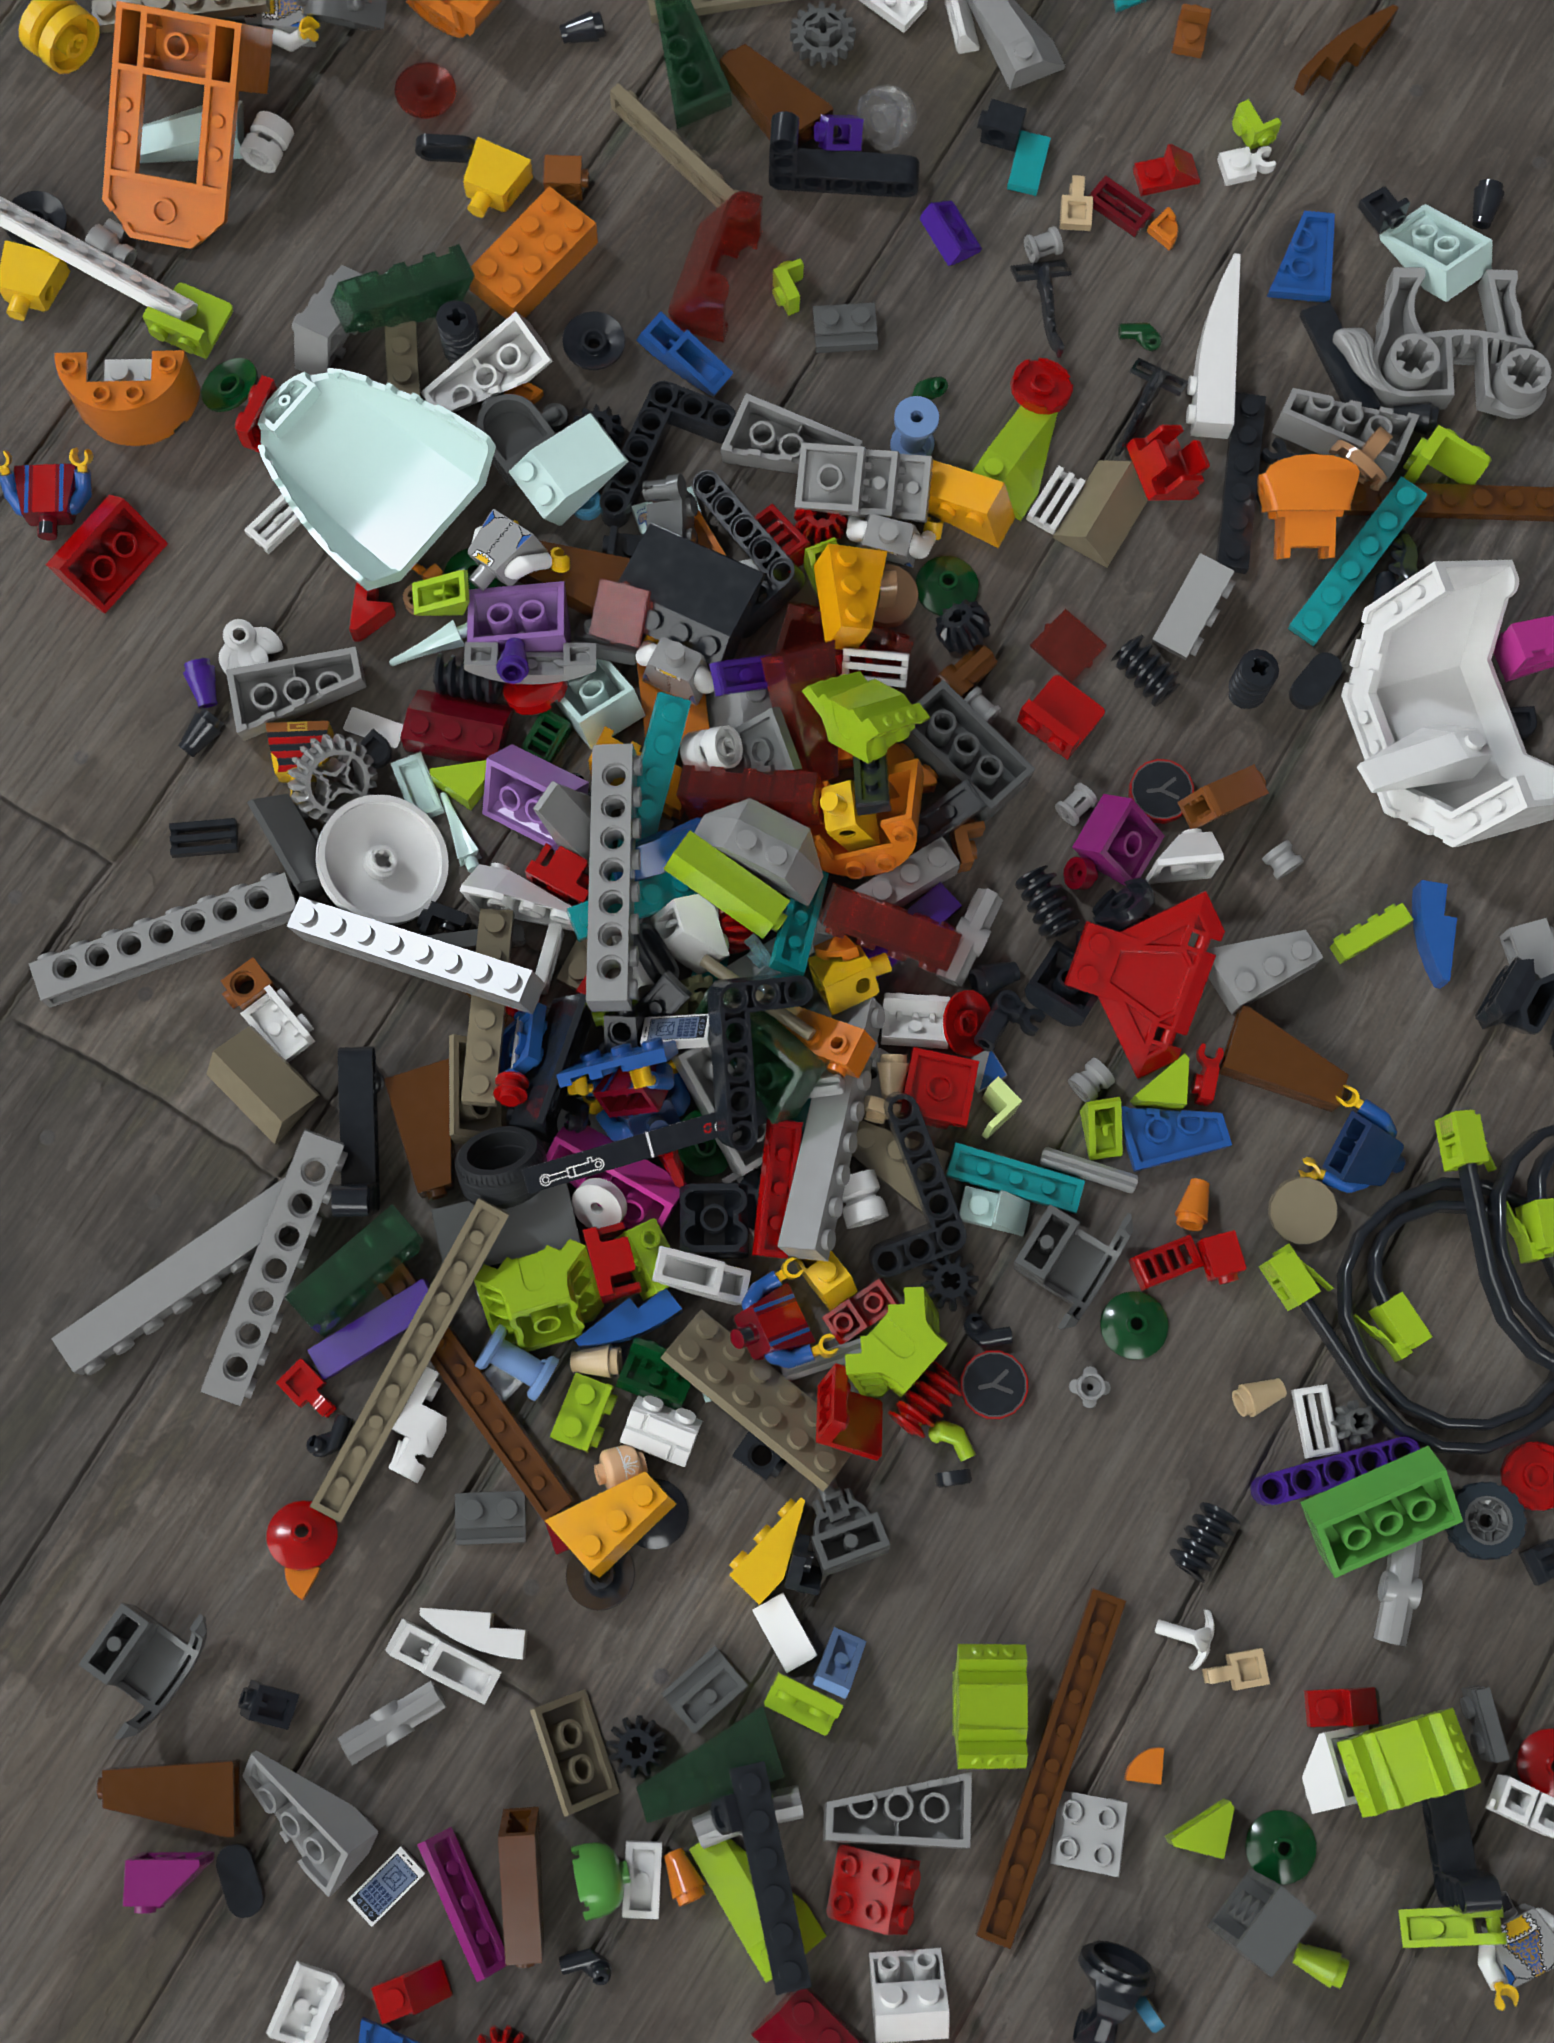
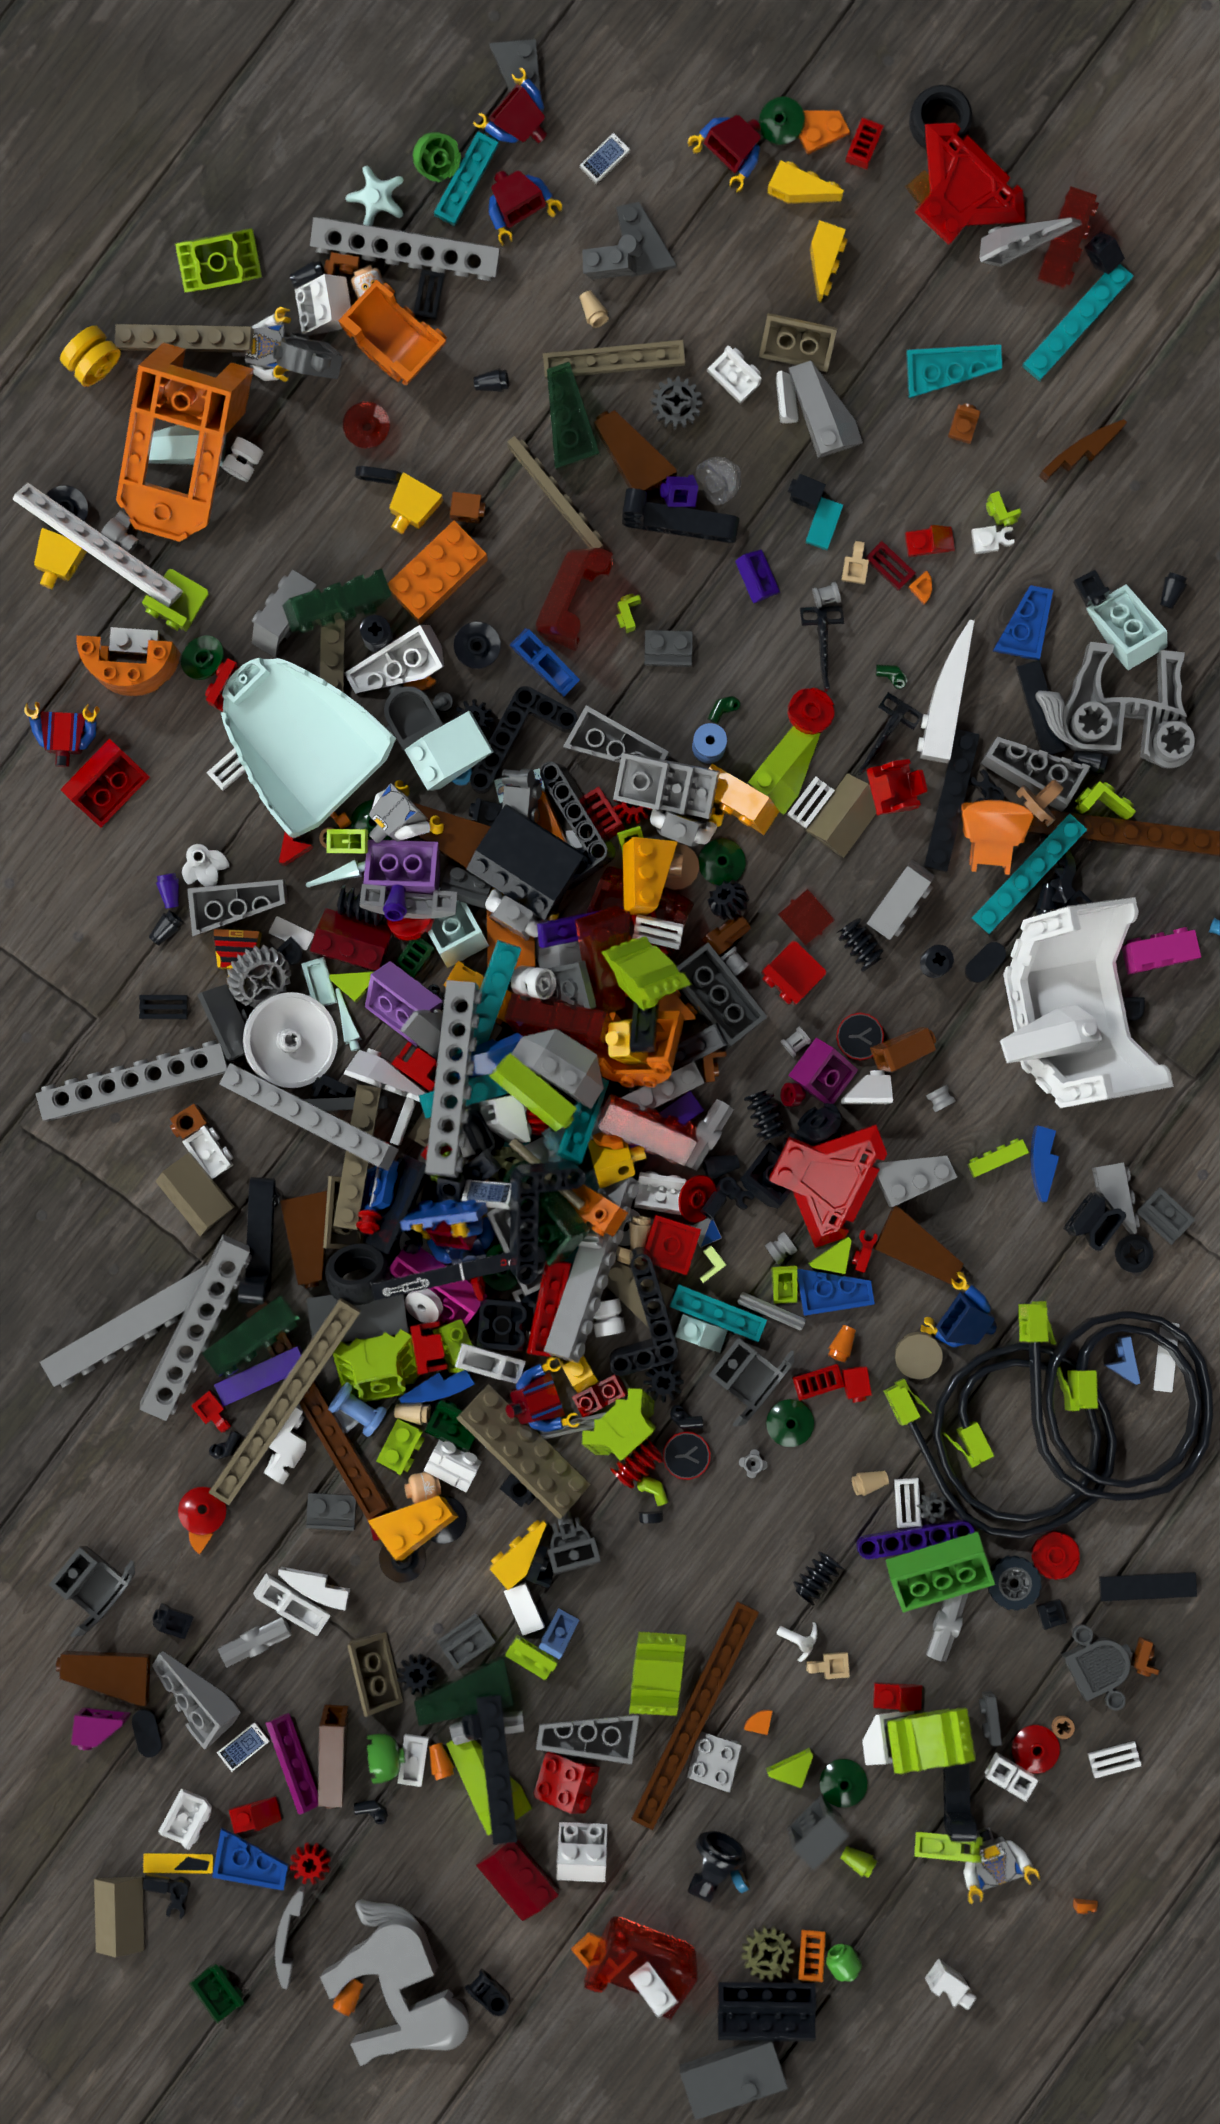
camera: 10 degrees right, 10 degrees up
(619, 612) = (476, 871): clear red piece -> none
(848, 1418) = (582, 1470): red bracket -> none

